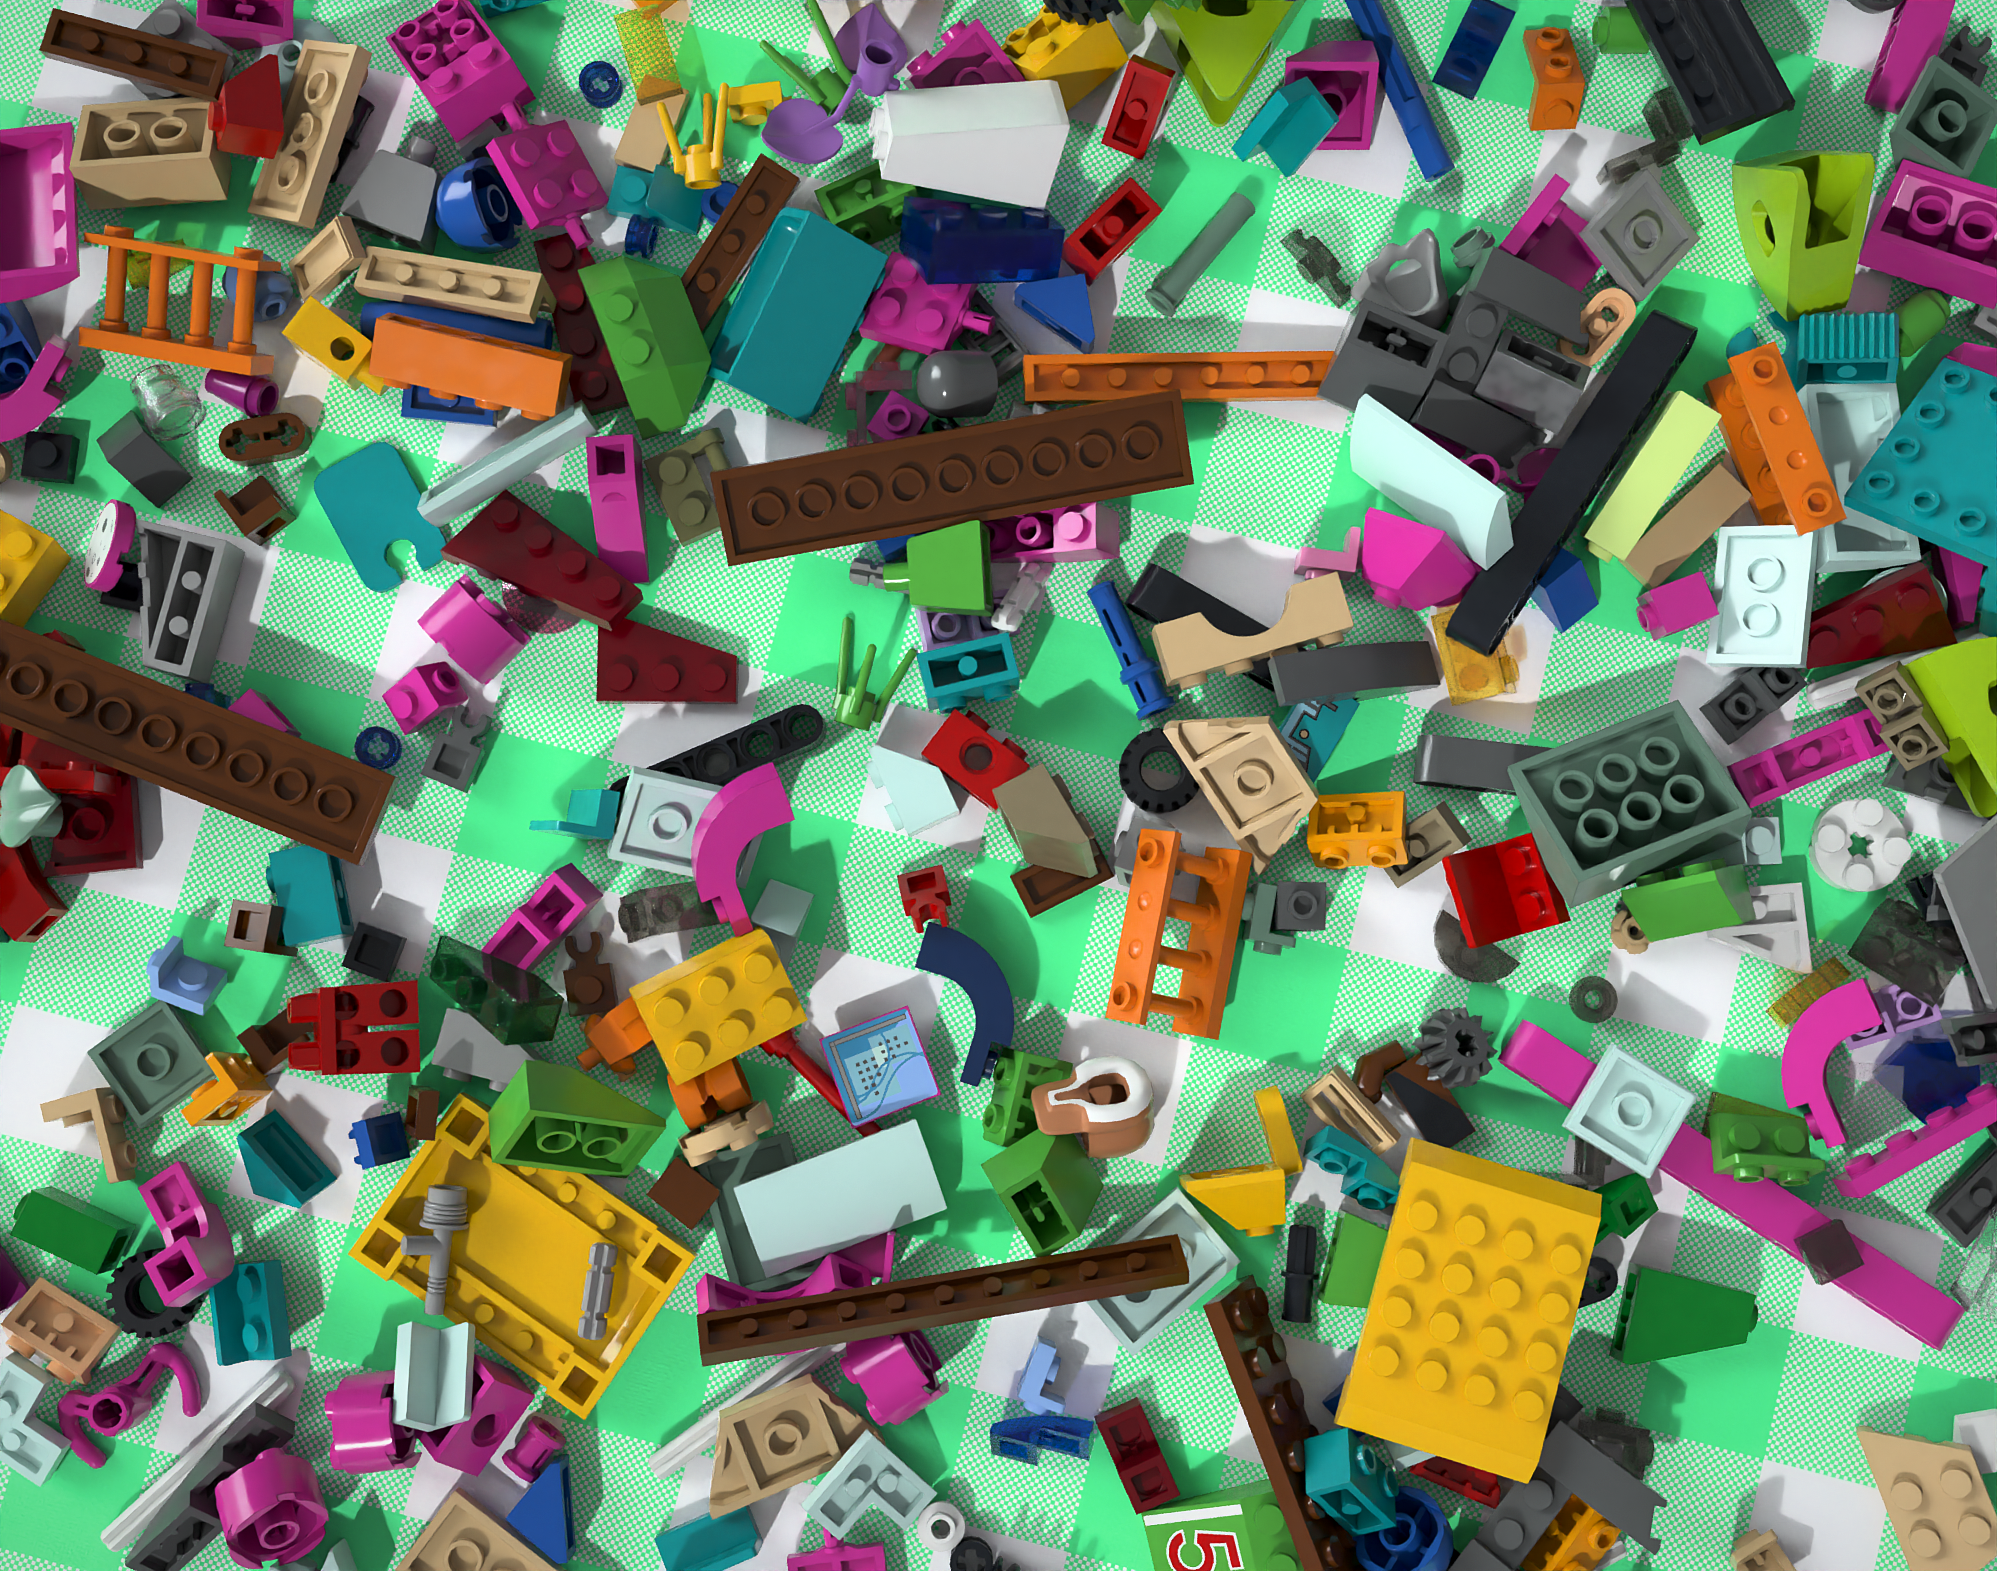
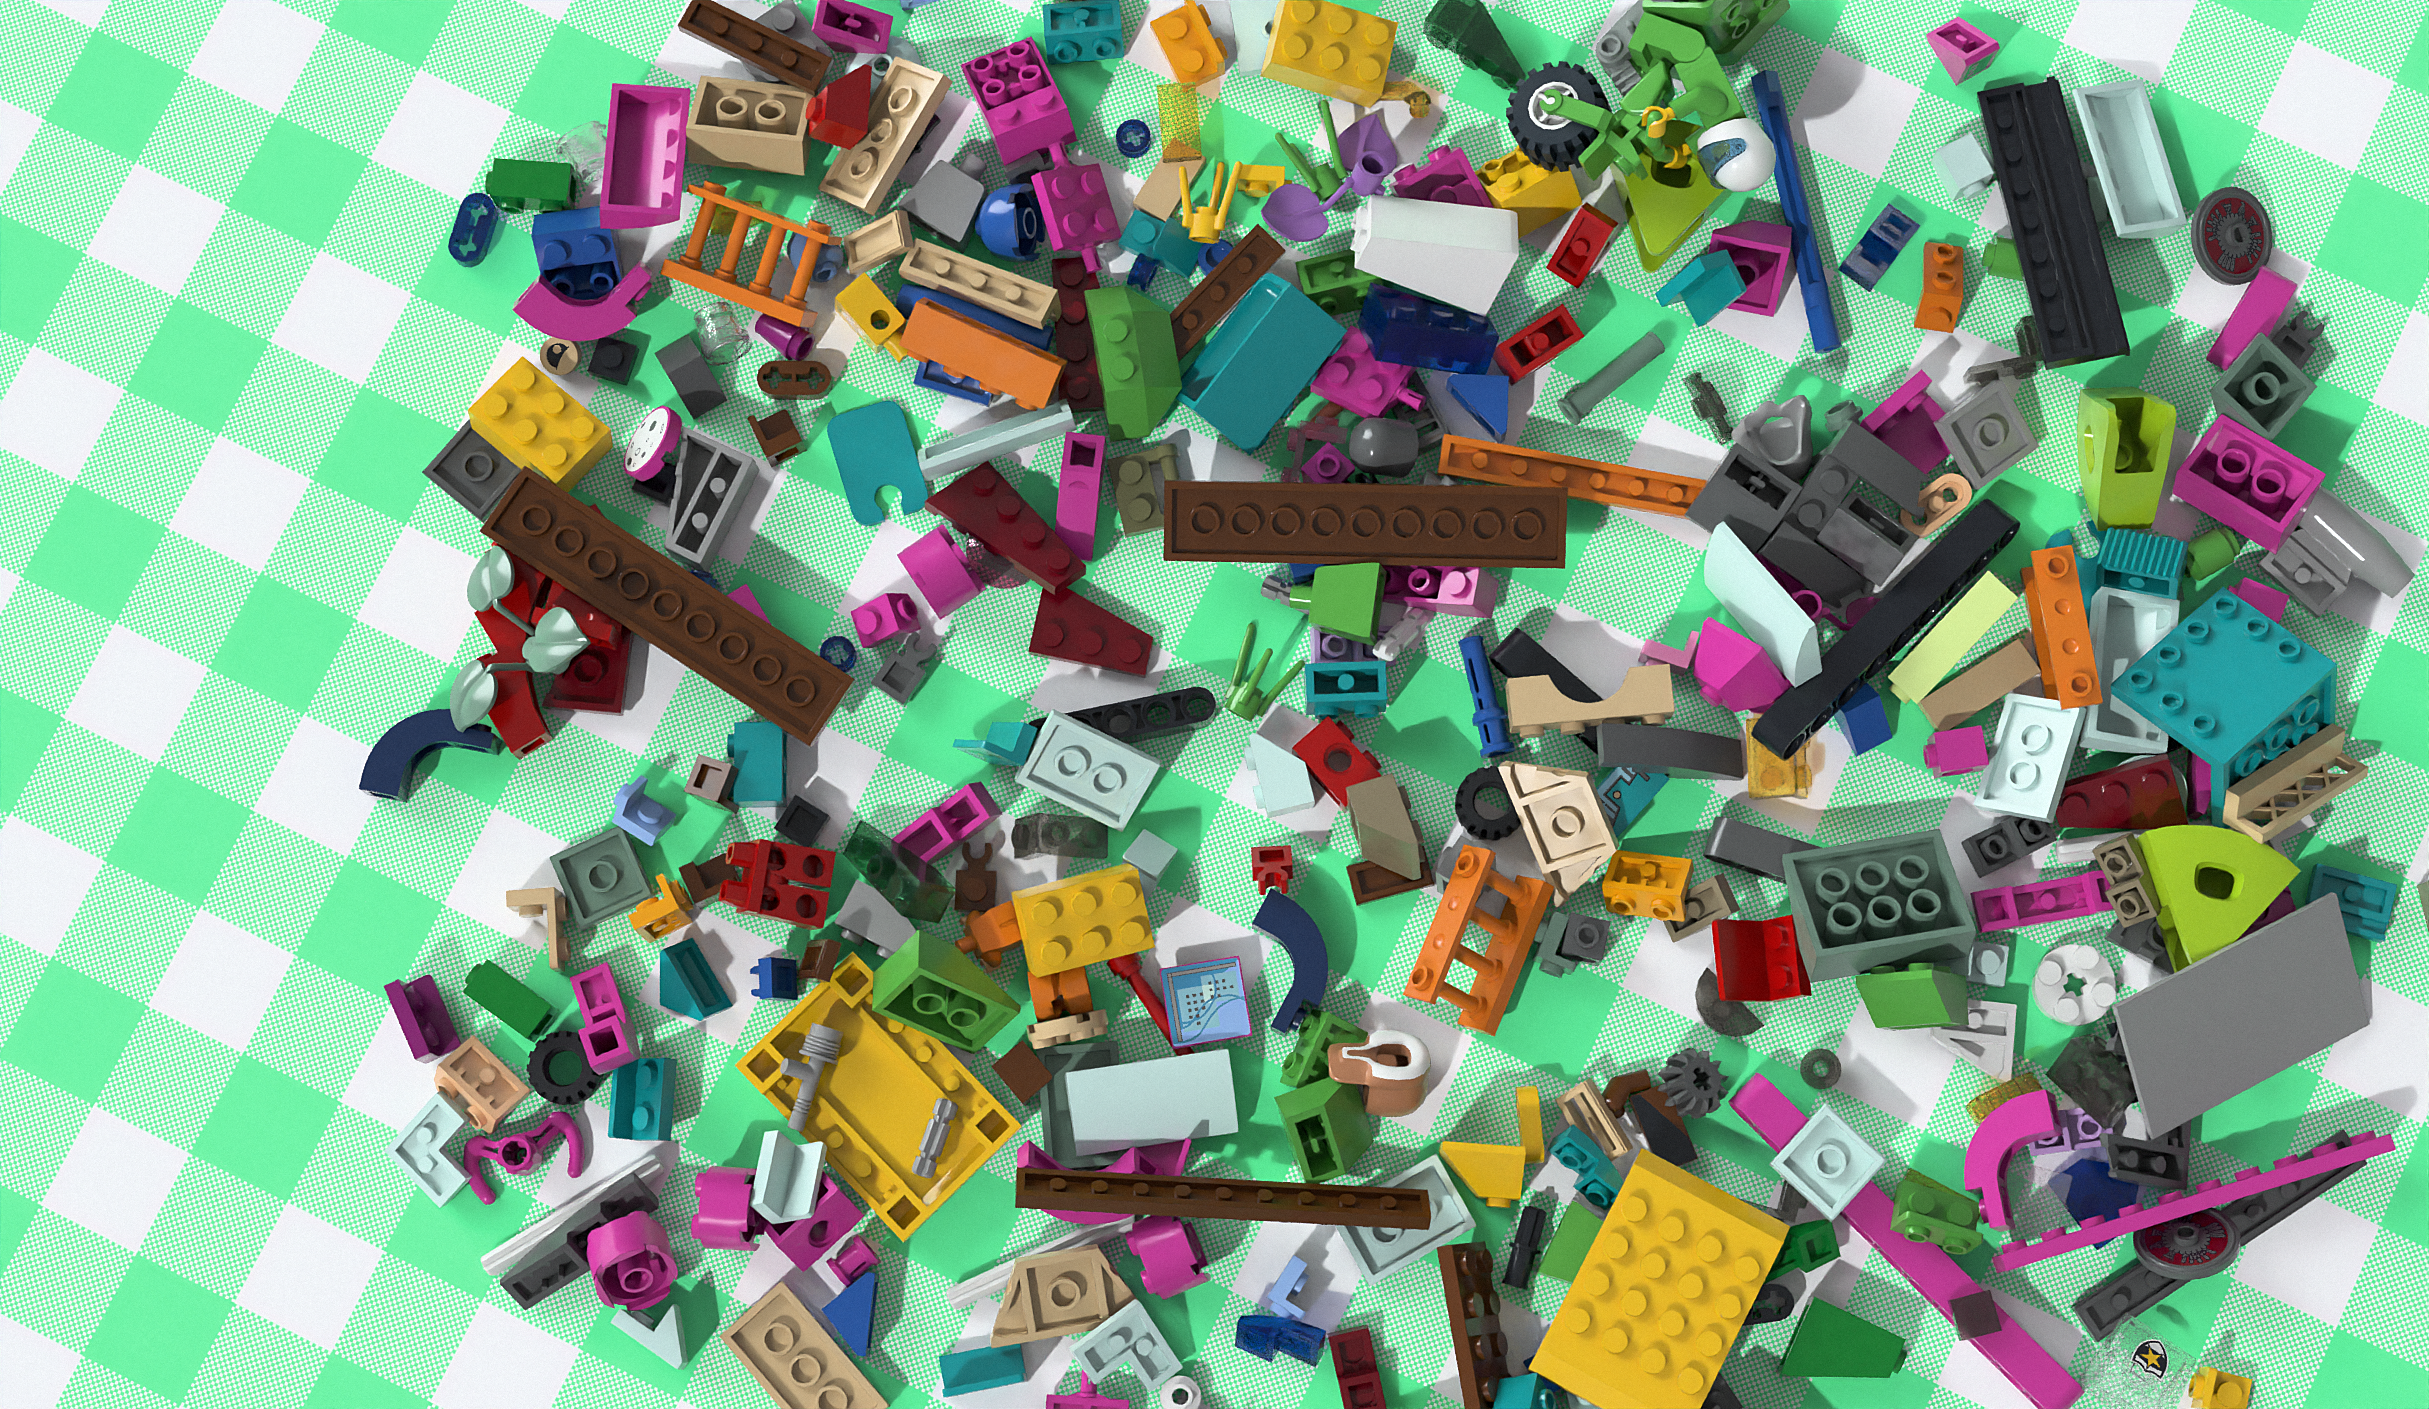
camera: 15 degrees right, 5 degrees down
(726, 826) = (1121, 772): dark pink arch -> none
(1621, 934) = (1857, 1024): tan plate -> none

